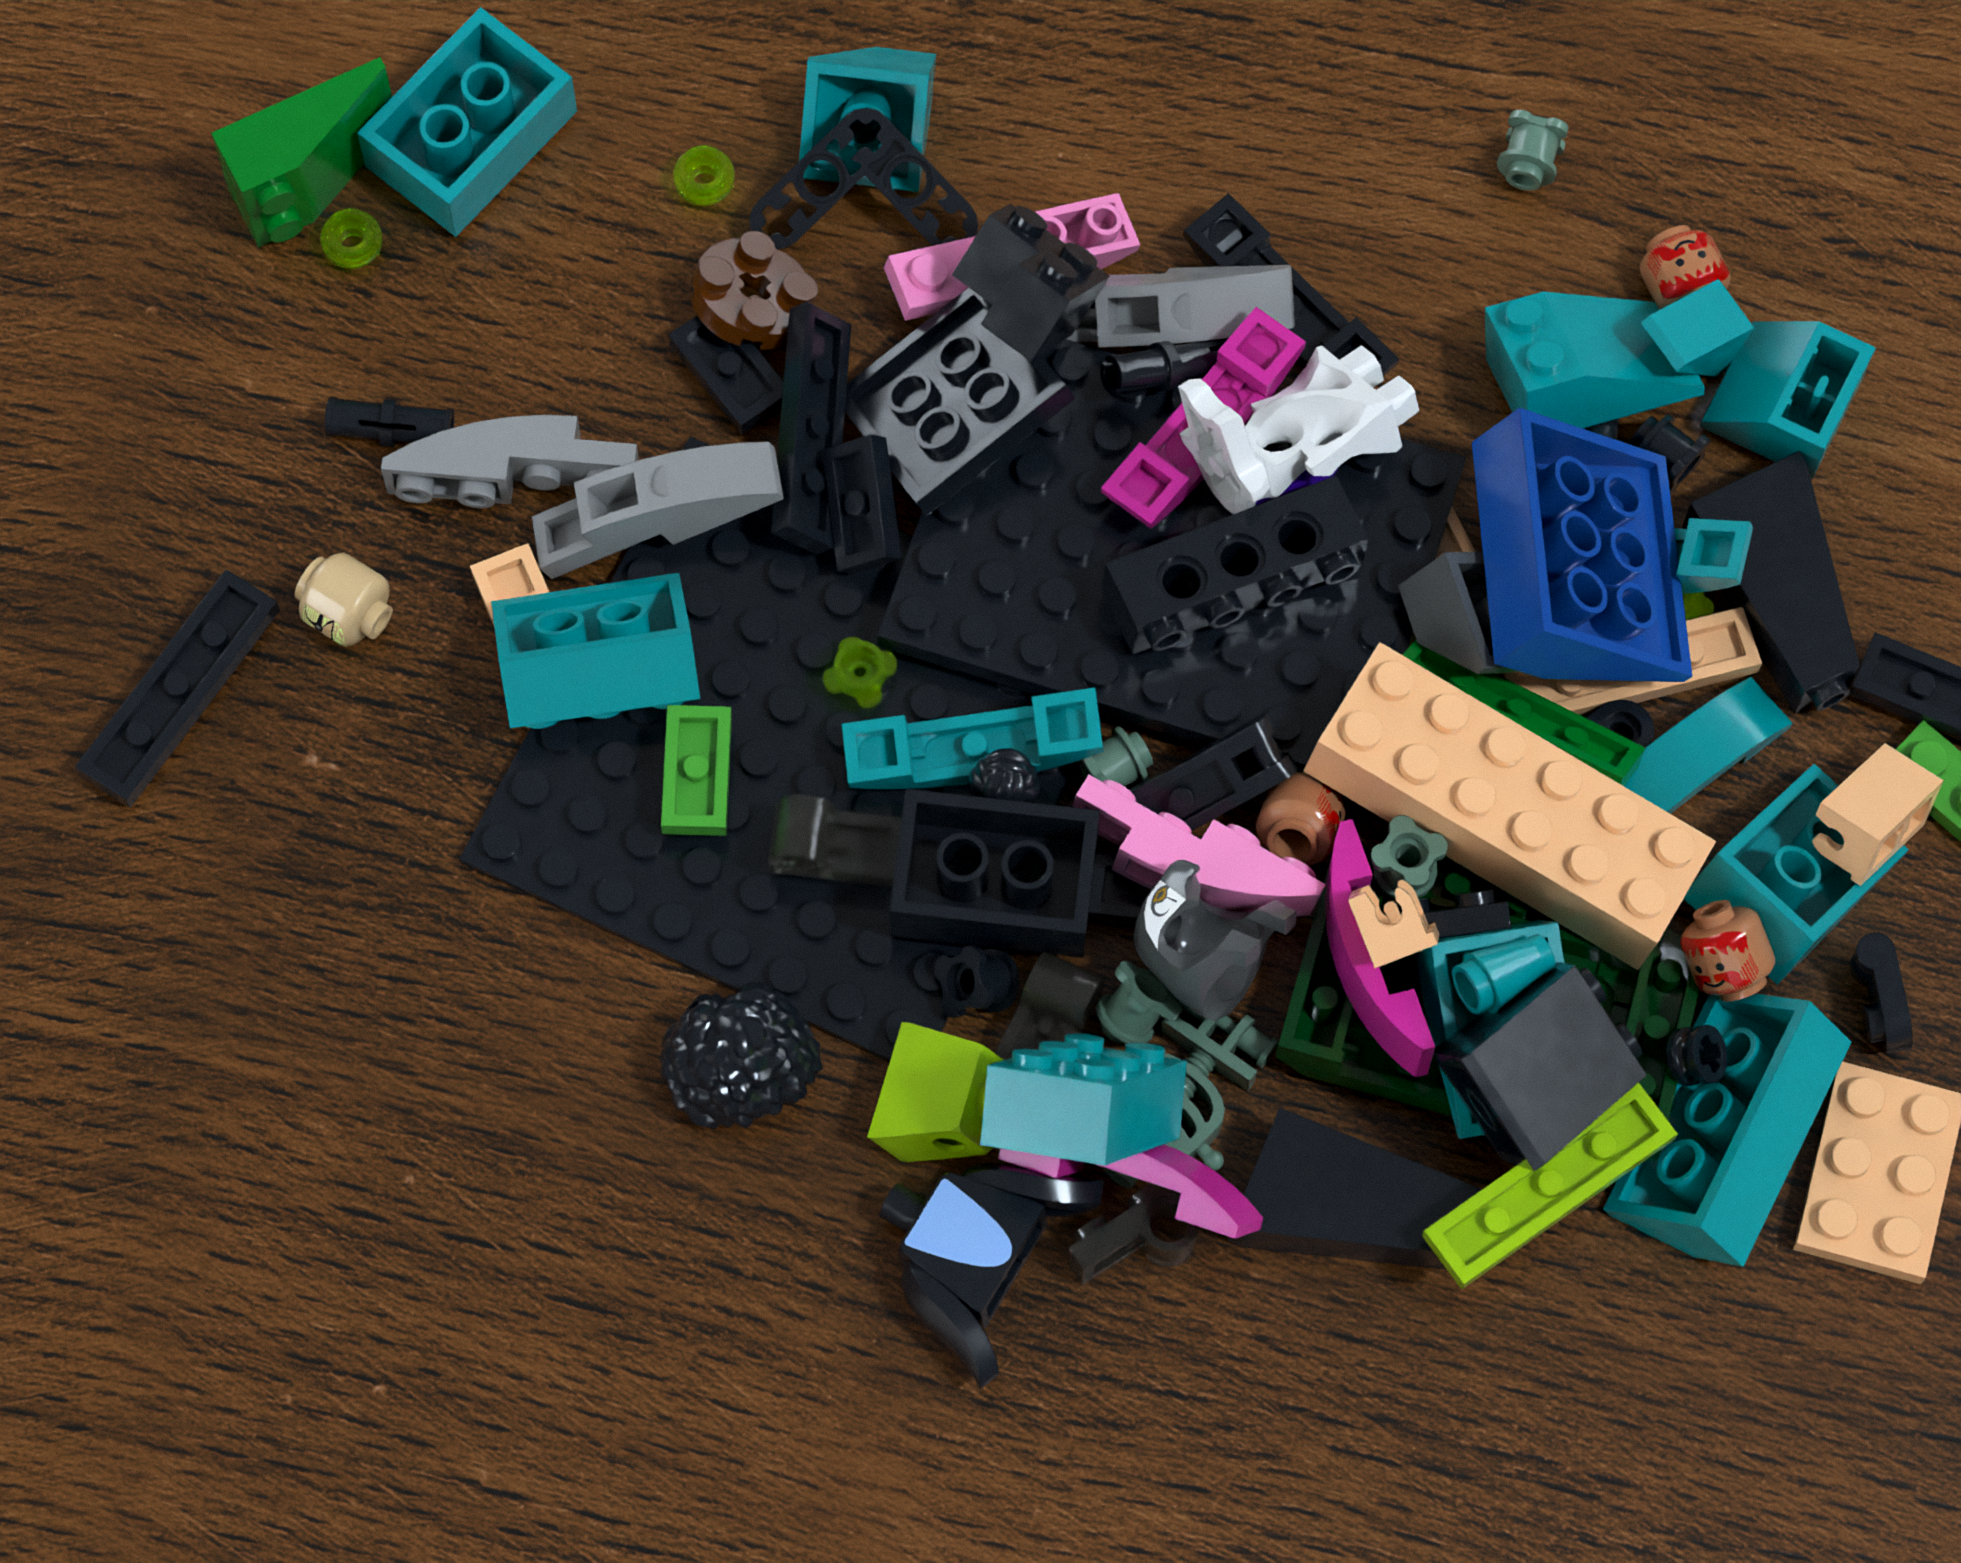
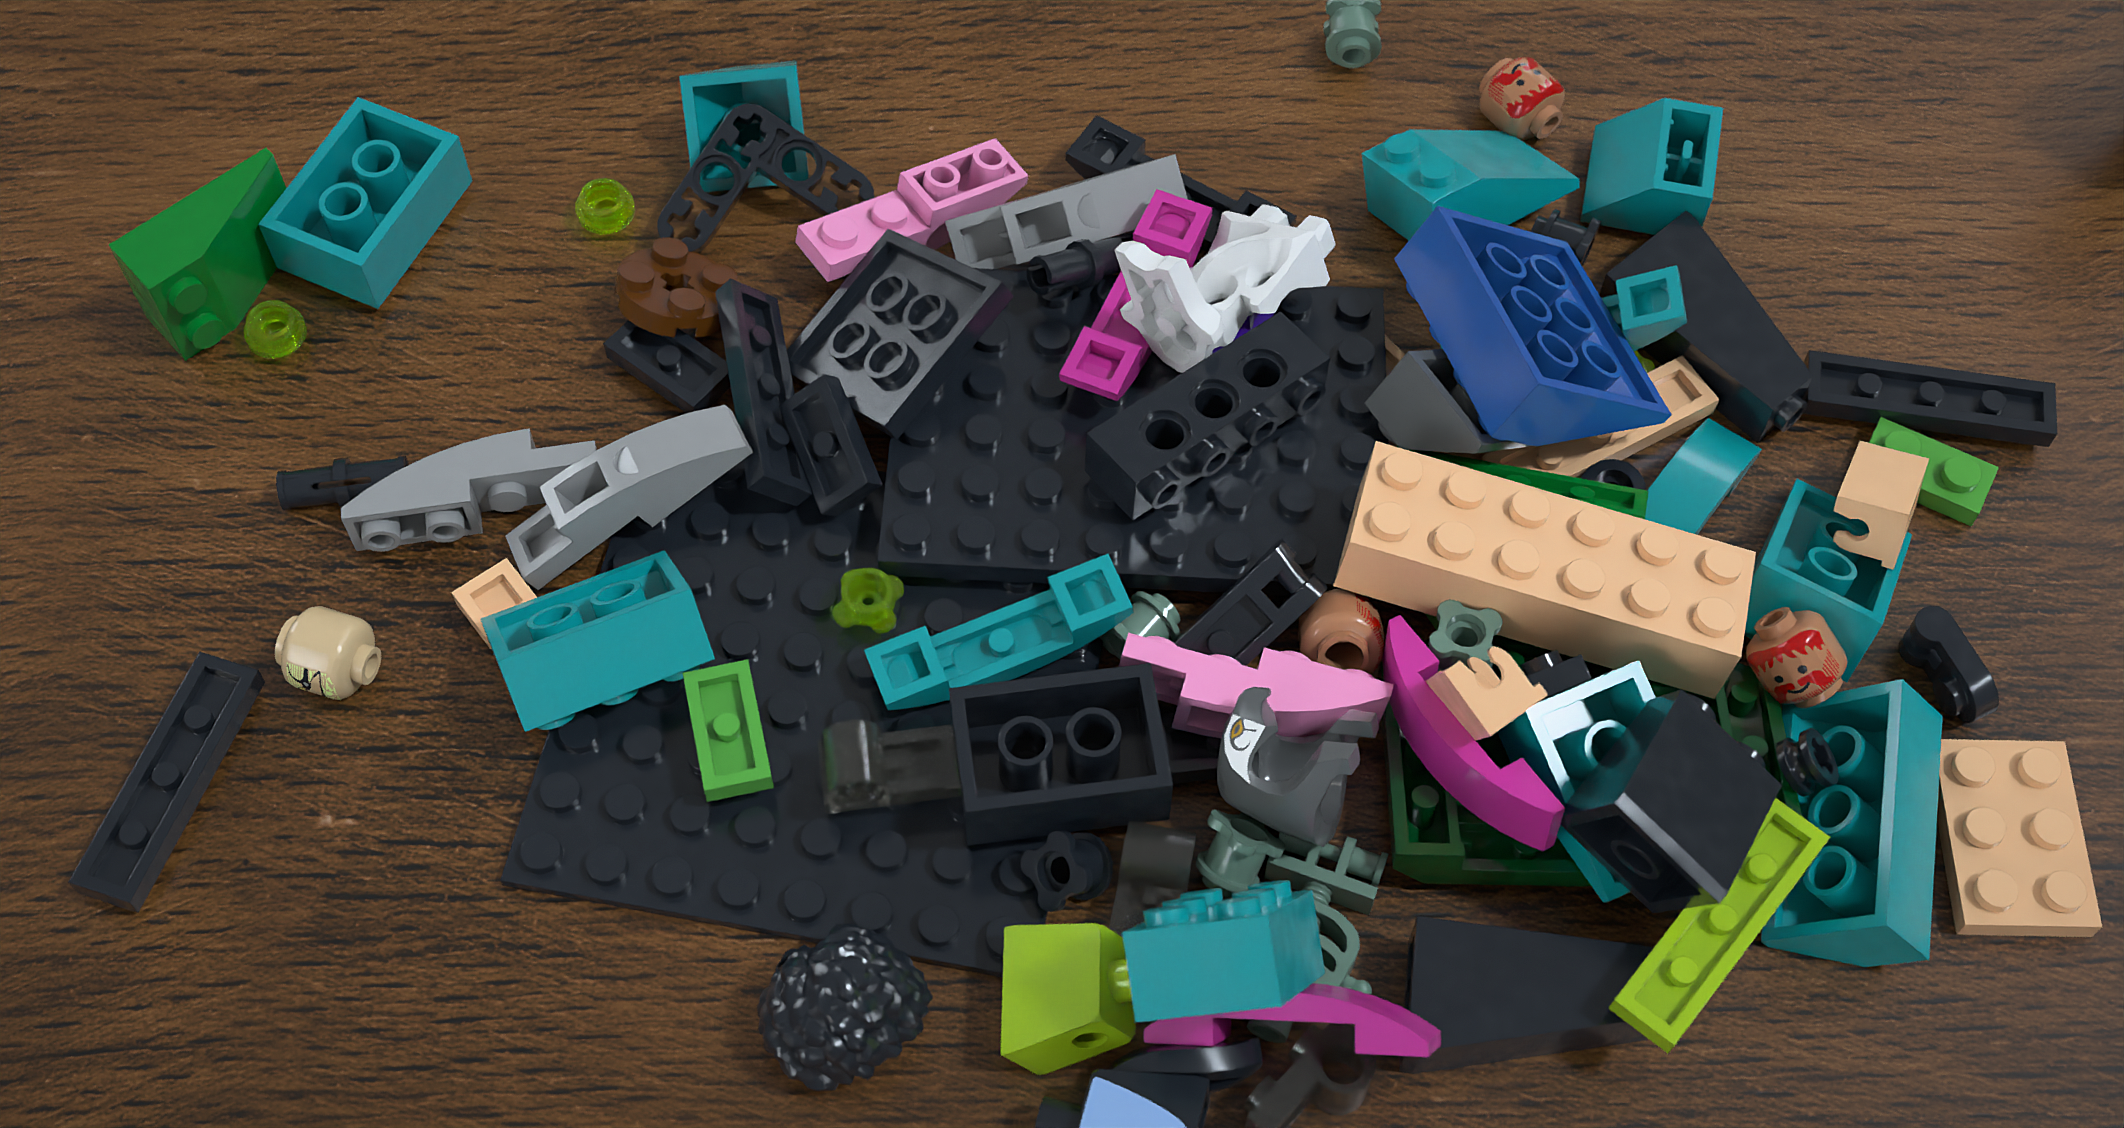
camera: 15 degrees left, 10 degrees down
(1005, 776) = (1042, 654): black piece -> none
(1030, 279) = (939, 207): black brick -> none
(1499, 973) = (1603, 721): teal cone -> none
(1700, 330) = (1564, 127): teal slope -> none

